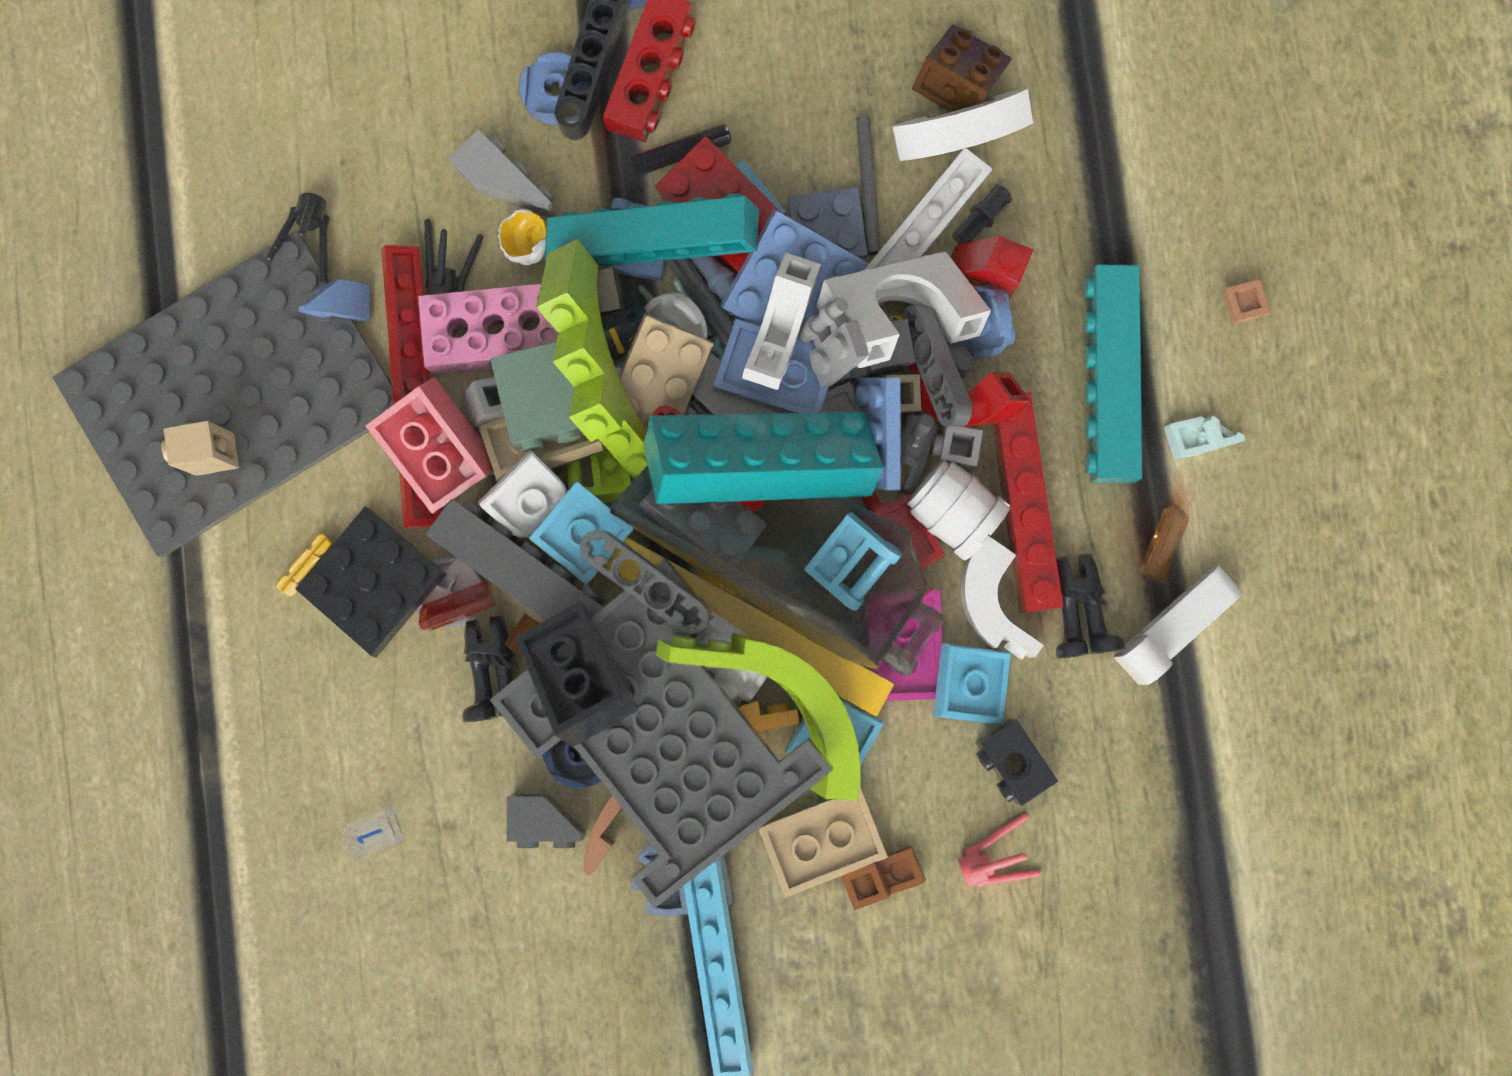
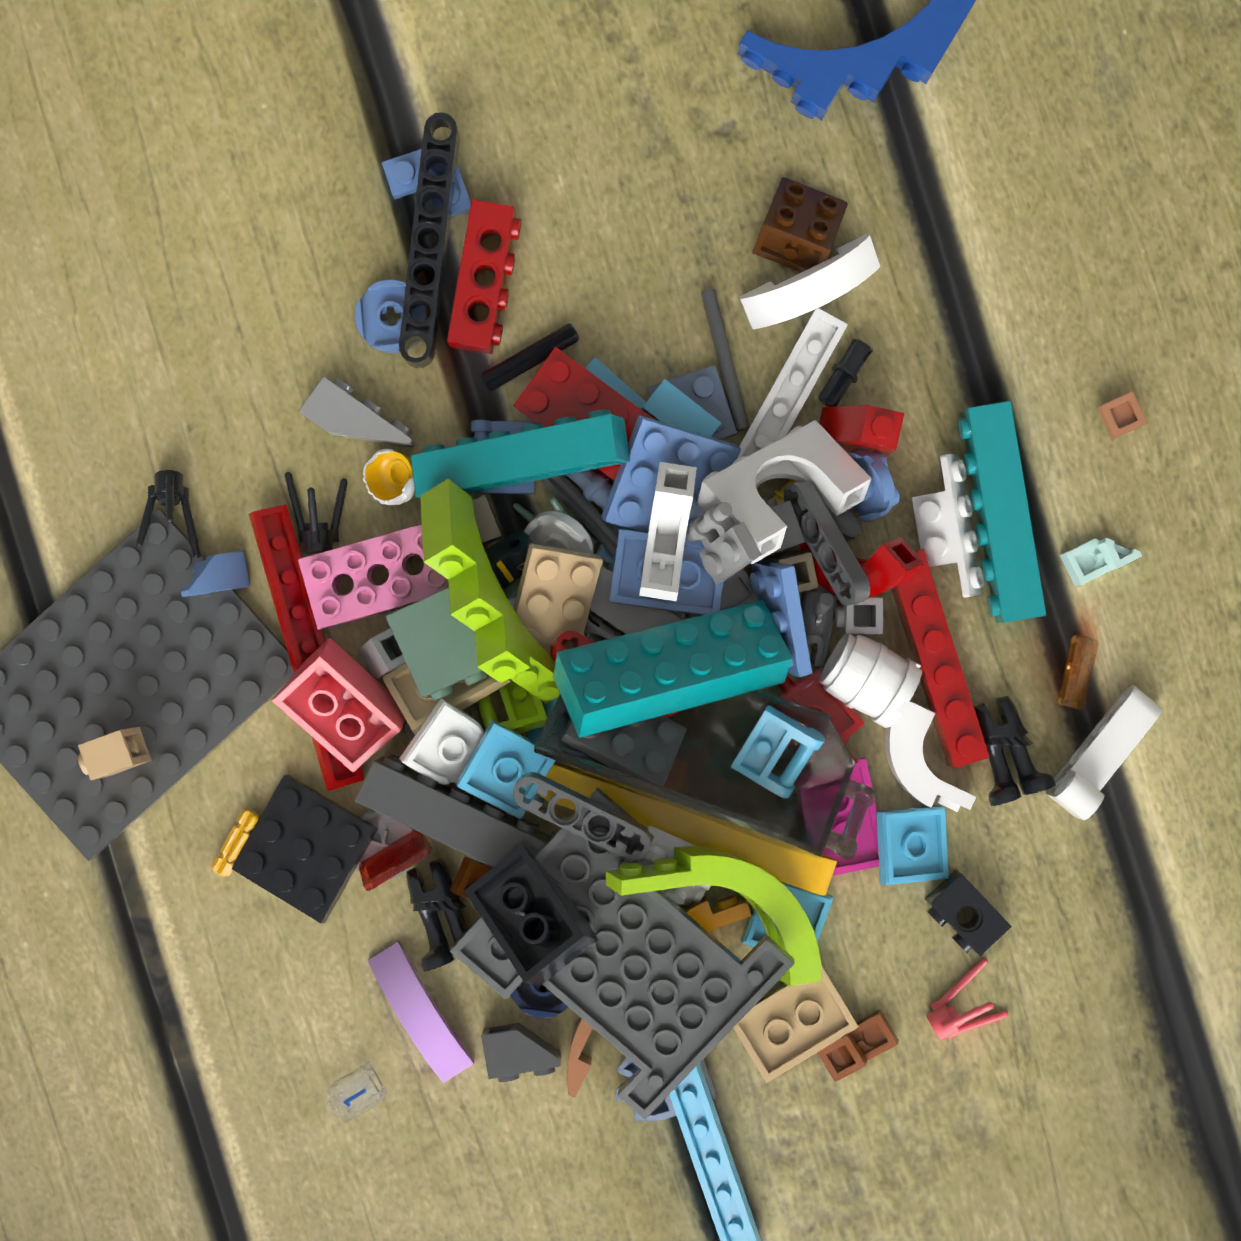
camera: 15 degrees left, 5 degrees up
(451, 766) = (419, 1013): none -> lavender slope
(814, 216) = (677, 409): none -> medium azure tile
(1056, 378) = (946, 526): none -> white bracket

